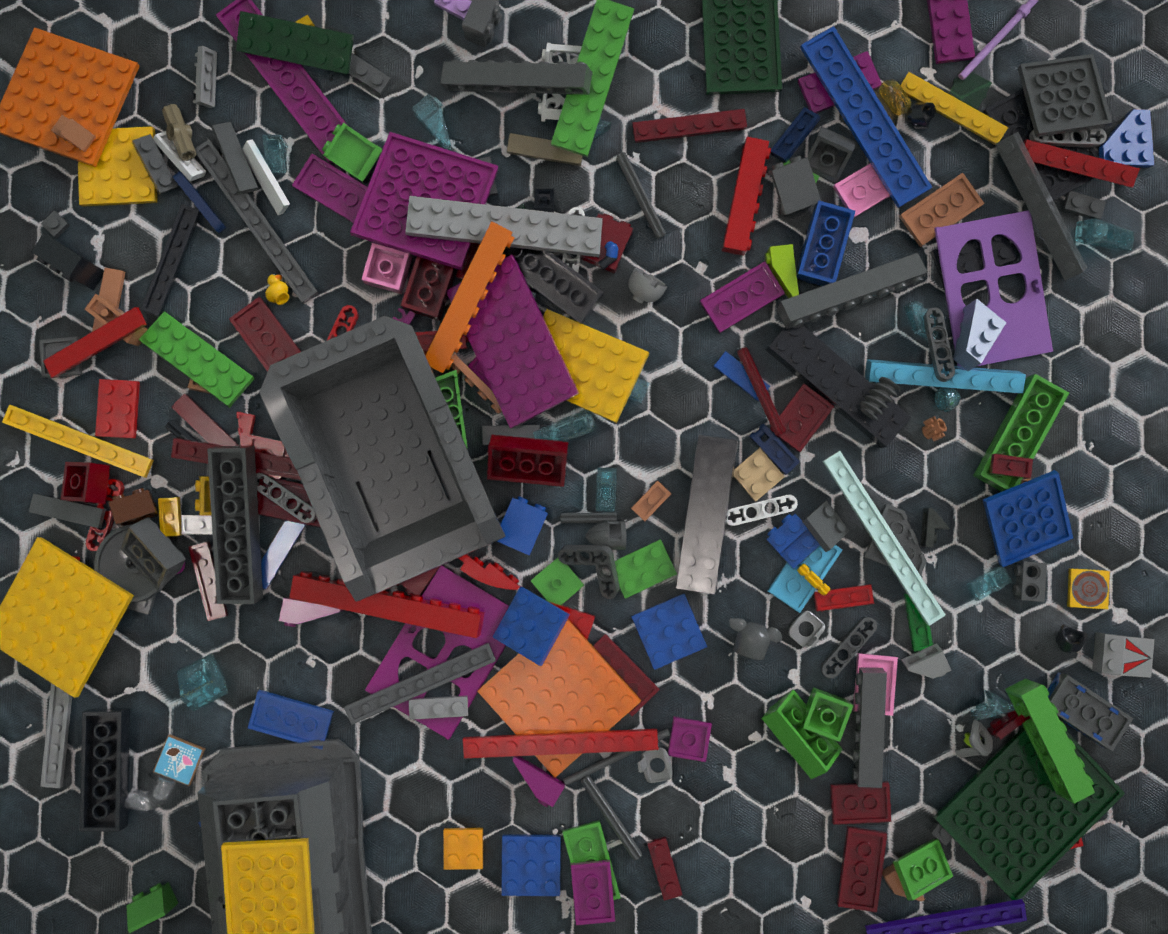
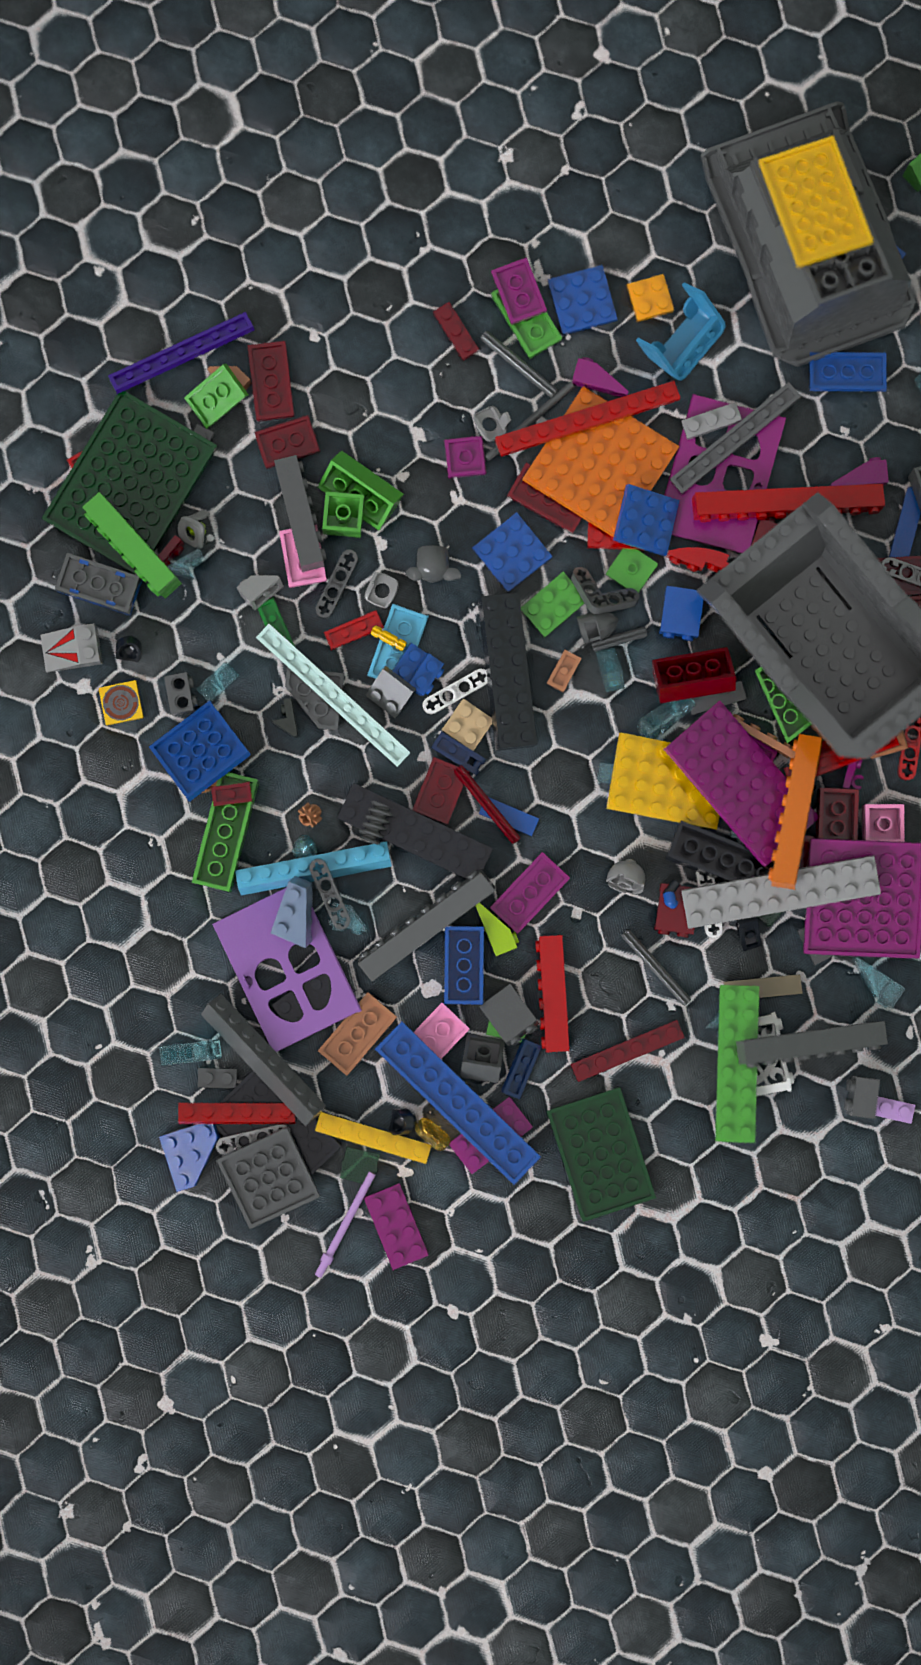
camera: 170 degrees right, 0 degrees up
(436, 794) = (691, 338): none -> dark azure windscreen

